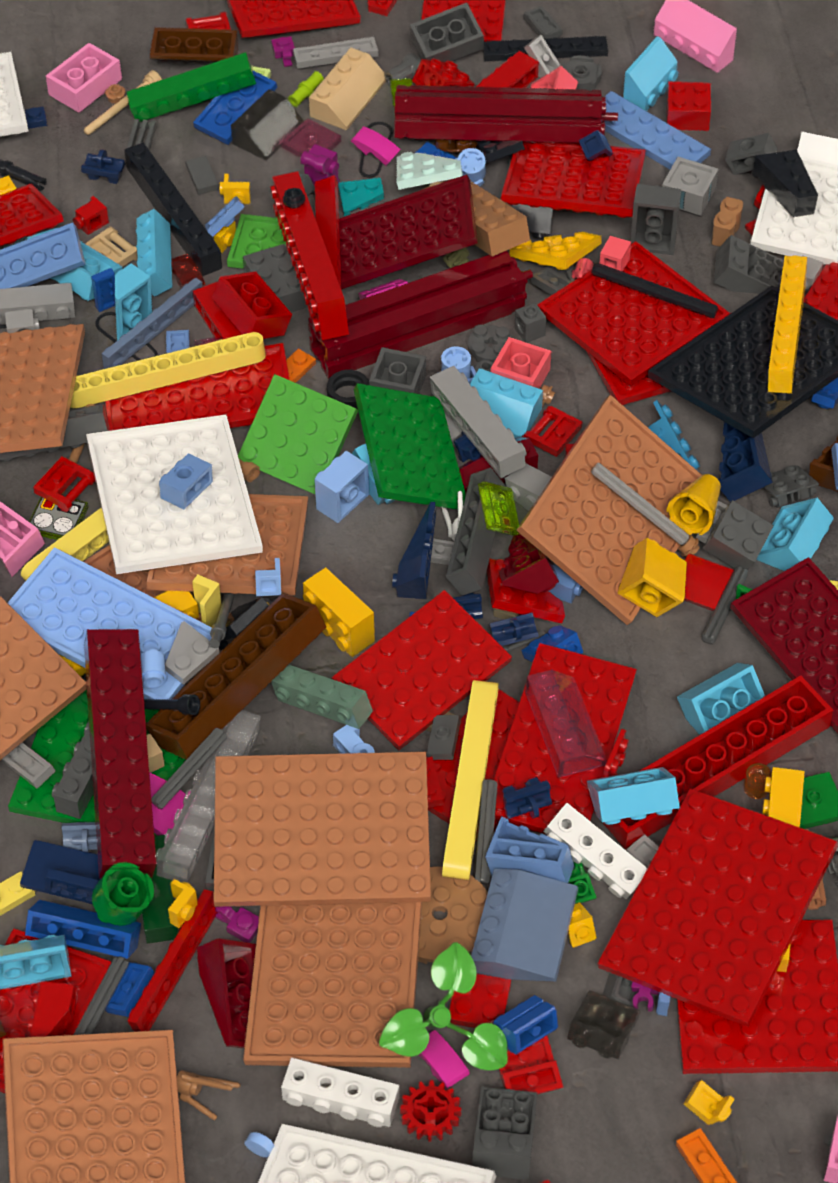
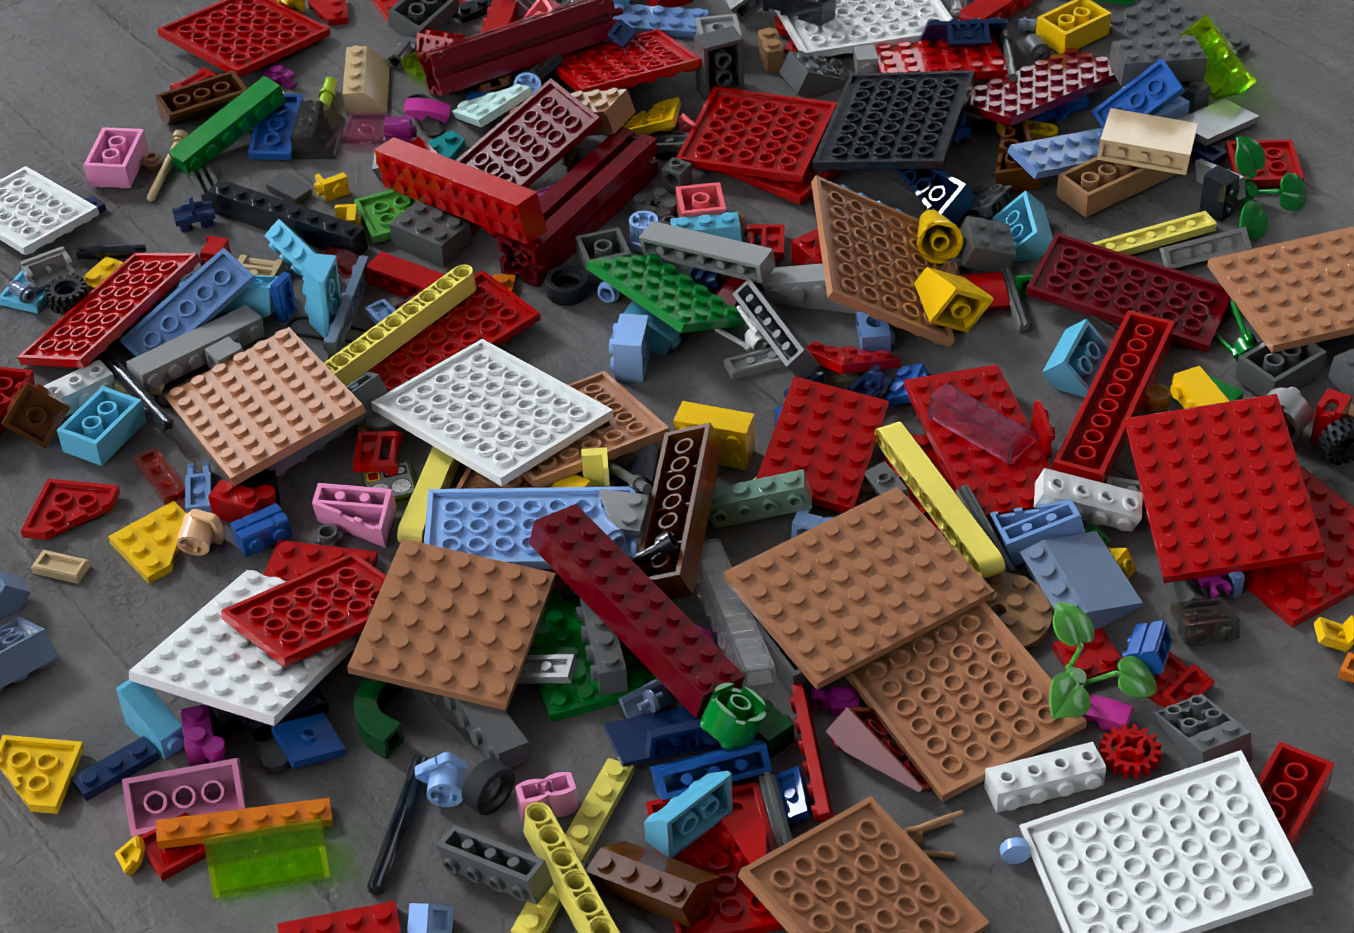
camera: 30 degrees left, 10 degrees down
(185, 481) = (501, 391): medium blue brick -> none
(185, 903) = (786, 692): yellow bracket -> none
(188, 768) = (701, 591): dark grey axle -> none
(225, 216) = (349, 199): medium blue plate -> none
(252, 305) = (433, 249): red brick -> none
(268, 581) = (647, 428): light blue panel -> none
(293, 198) = (415, 150): black plate -> none
(296, 433) = (561, 325): bright green plate -> none
(332, 52) = (324, 63): light grey plate -> none
(415, 564) = (747, 369): dark blue wedge -> none
(498, 508) = (780, 305): clear neon green tile -> none
(527, 567) = (842, 329): dark red wedge -> none
(528, 799) = (1004, 487): dark blue hips -> none
(616, 253) = (711, 97): coral brick -> none
(634, 795) = (1087, 442): medium azure slope -> none
(640, 503) = (896, 248): light grey axle -> none
(655, 290) = (764, 109): black axle -> none
(787, 325) = (898, 85): yellow brick -> none

